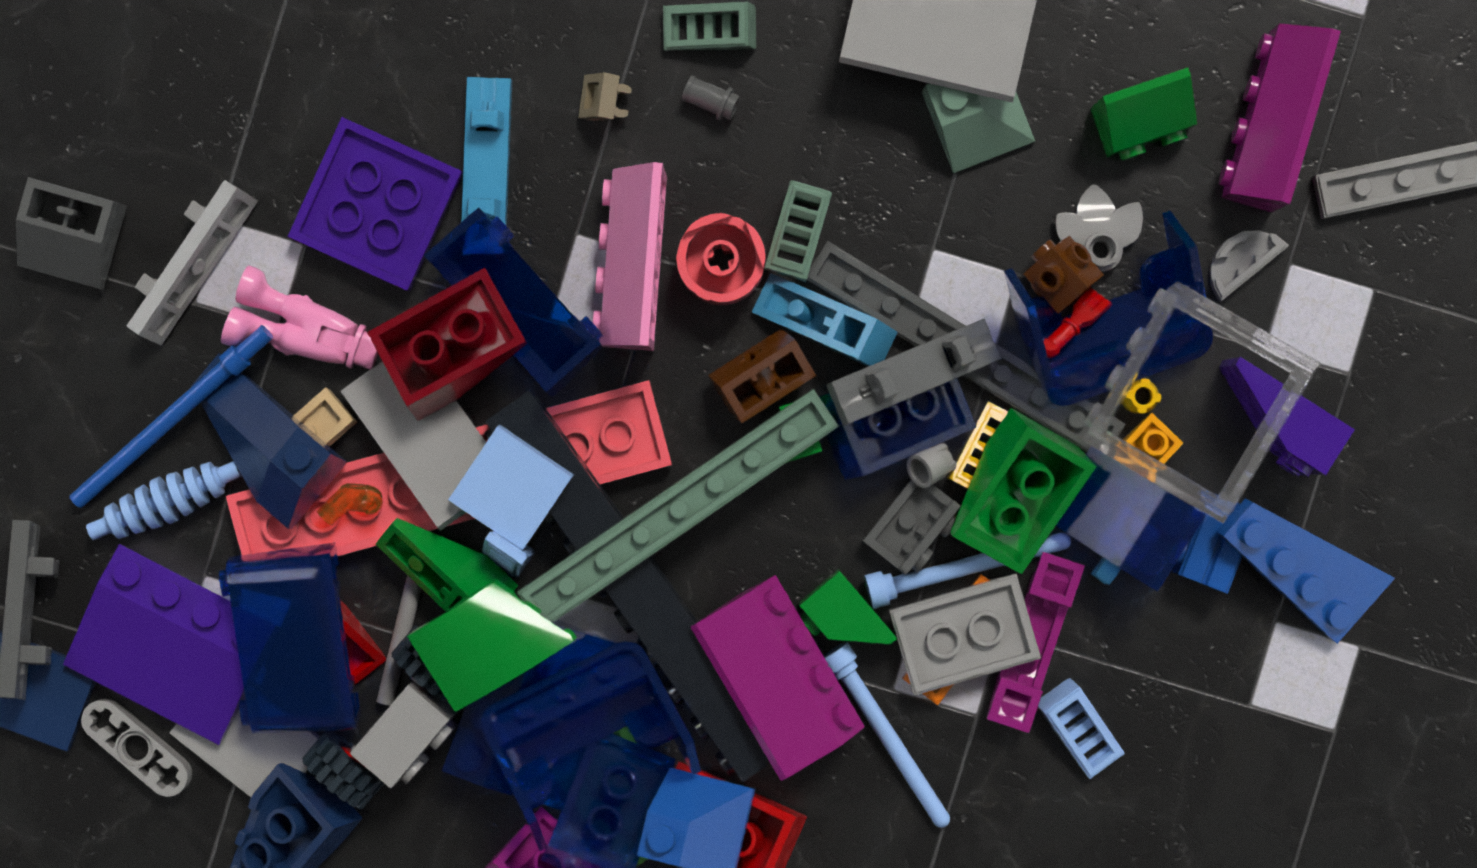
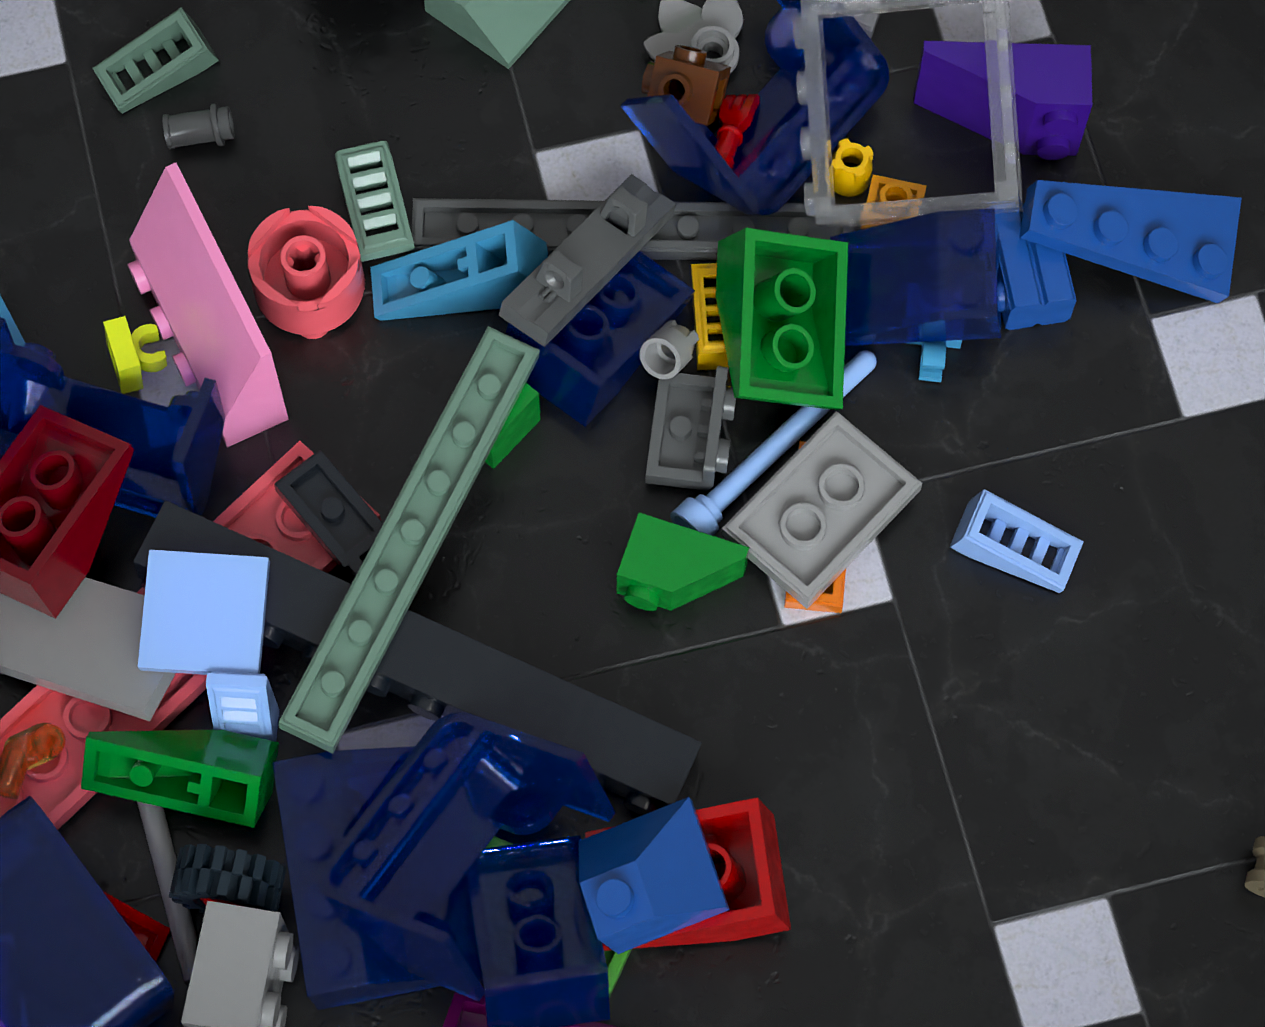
camera: 30 degrees left, 20 degrees down
(486, 643) = (273, 796): green slope -> none
(569, 245) = (127, 353): none -> neon yellow tile
(600, 97) = (75, 186): dark tan tile -> none
(639, 453) = (331, 511): none -> black hinge
(762, 375) = (424, 362): reddish brown brick -> none
(777, 677) = (641, 662): magenta slope -> none
(843, 666) = (707, 625): light blue piece -> none
(1047, 602) = (888, 416): magenta slope -> none

